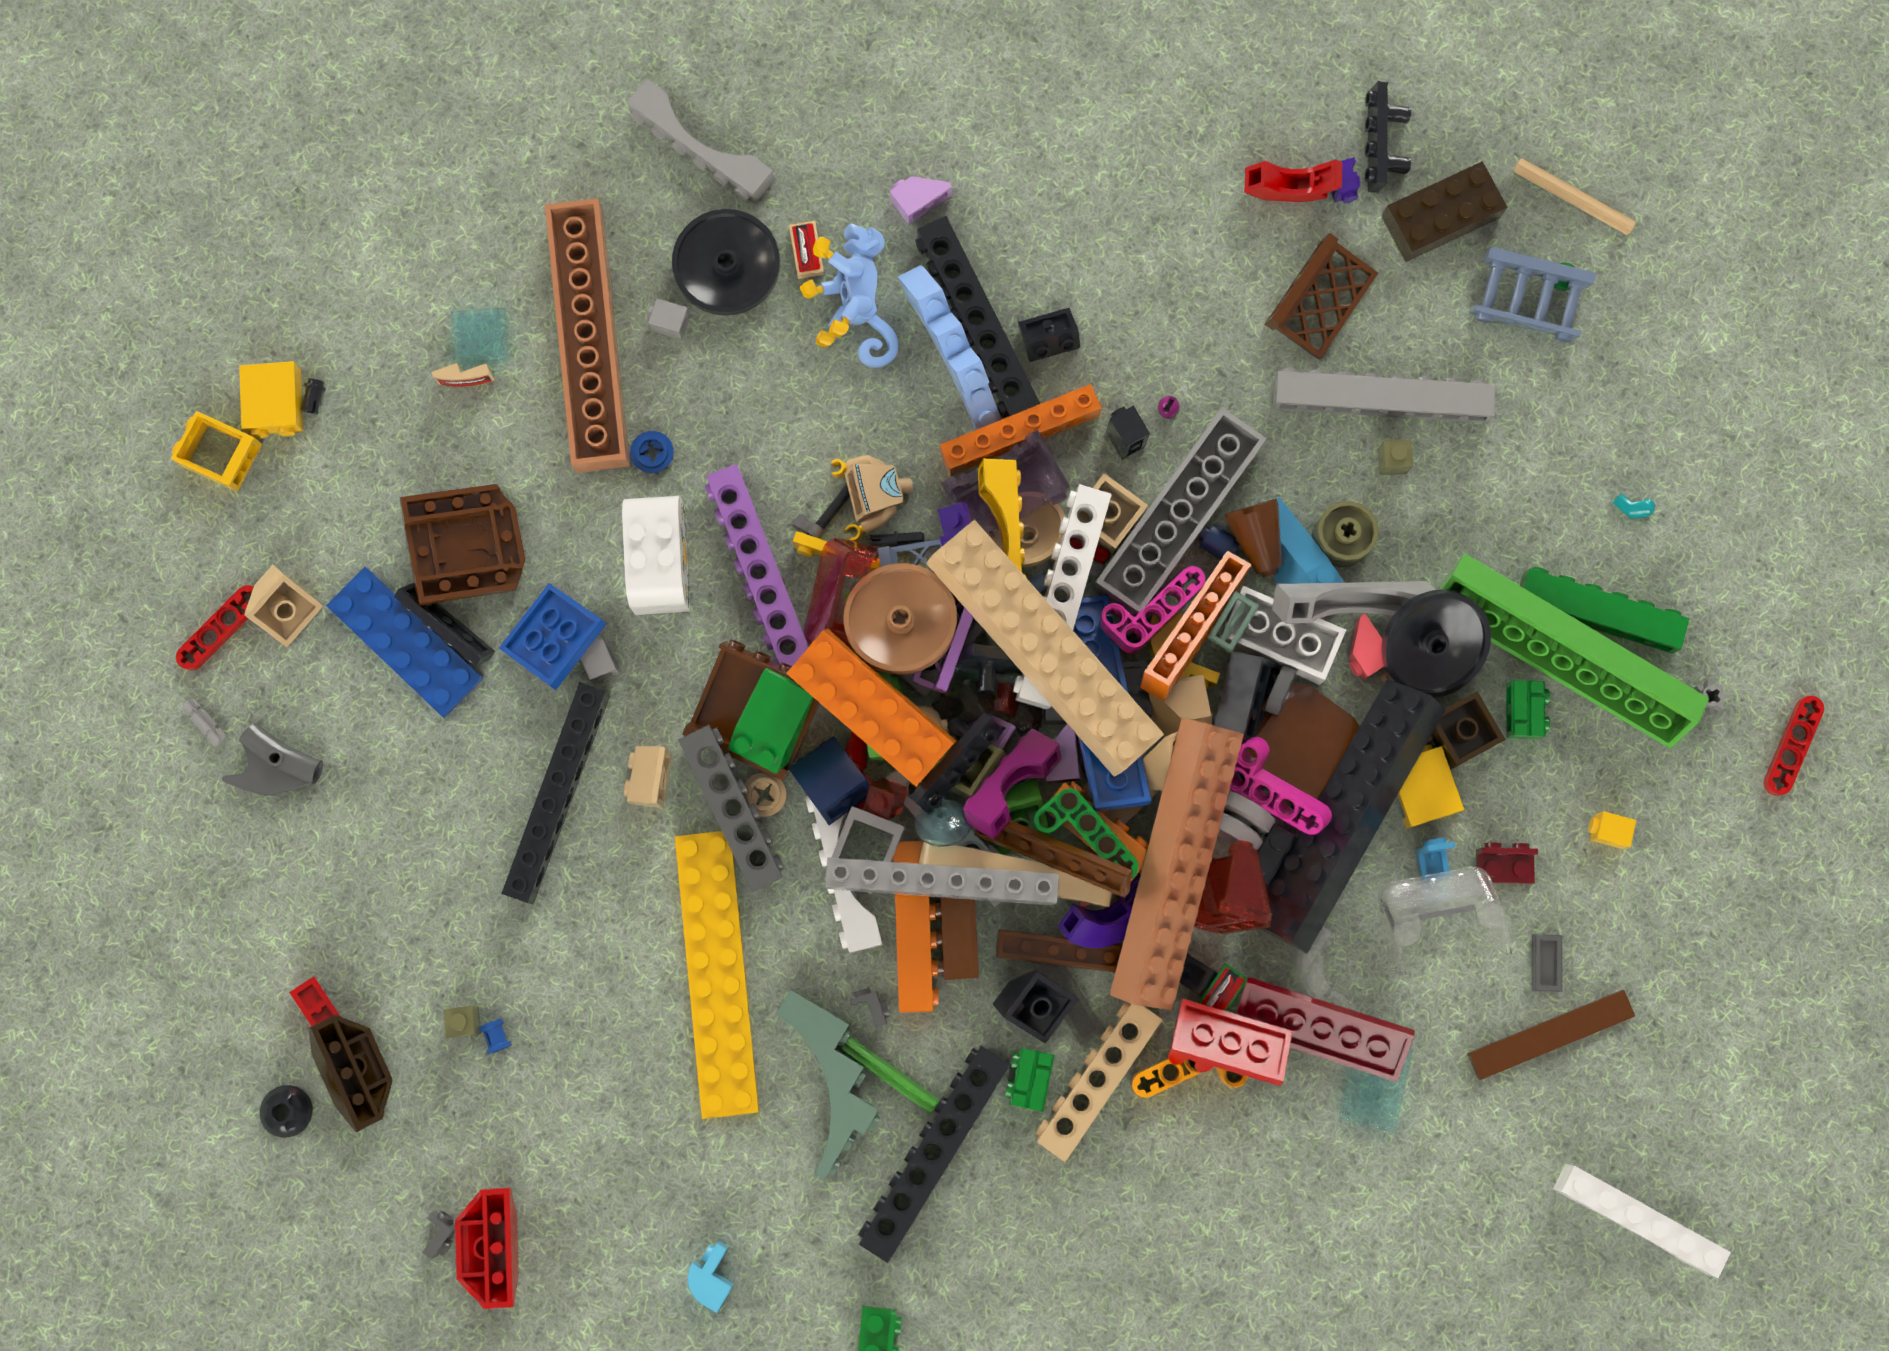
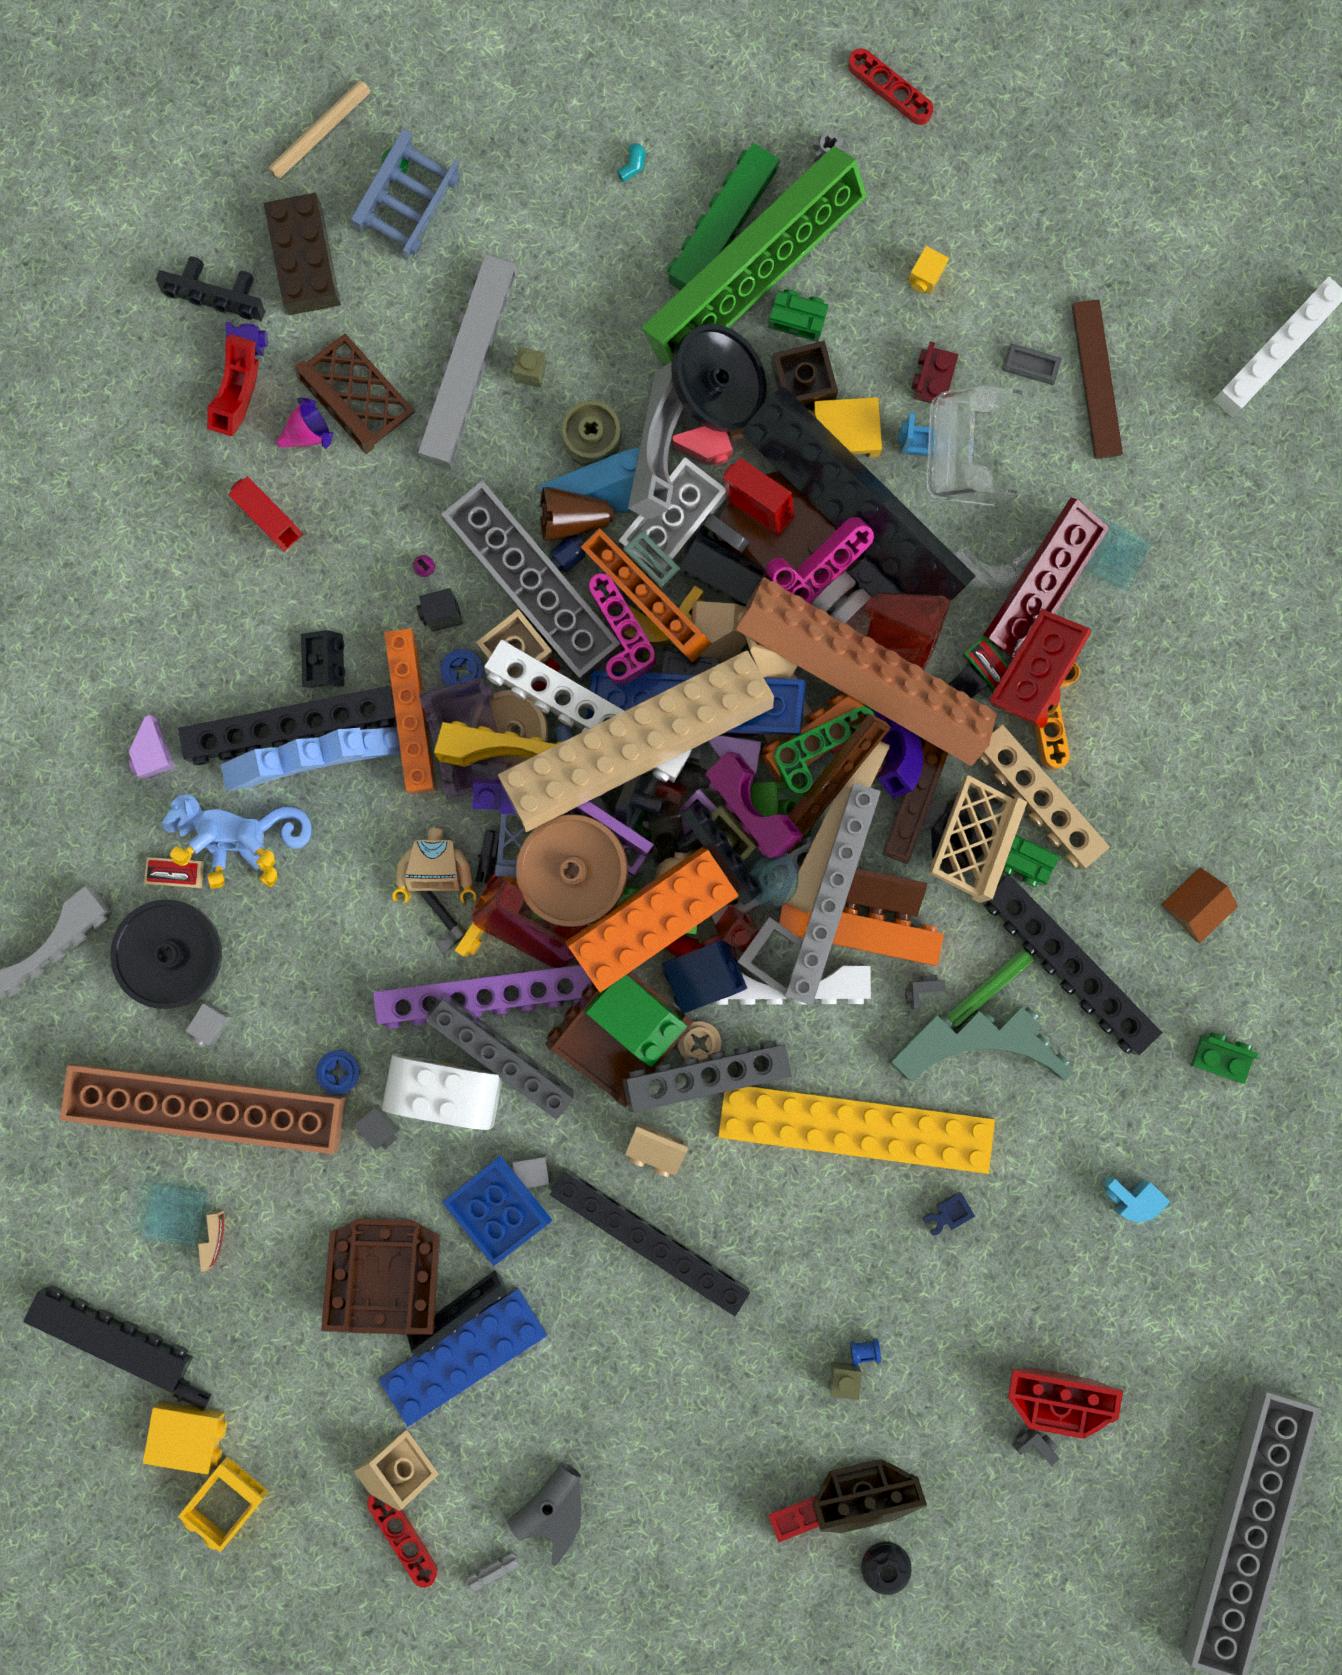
camera: 75 degrees left, 5 degrees up
(349, 305) = (108, 1338): none -> black brick
(605, 503) = (377, 1128): none -> dark grey brick
(655, 1091) = (953, 1212): none -> dark blue plate
(703, 600) = (500, 1055): none -> dark grey brick
(1031, 1043) = (994, 853): none -> tan fence
(1031, 1276) = (1200, 904): none -> dark orange slope
(1084, 461) = (456, 659): none -> blue gear
(1176, 242) = (265, 513): none -> red brick
(1273, 259) = (305, 427): none -> hat
(1325, 712) = (758, 496): none -> red window

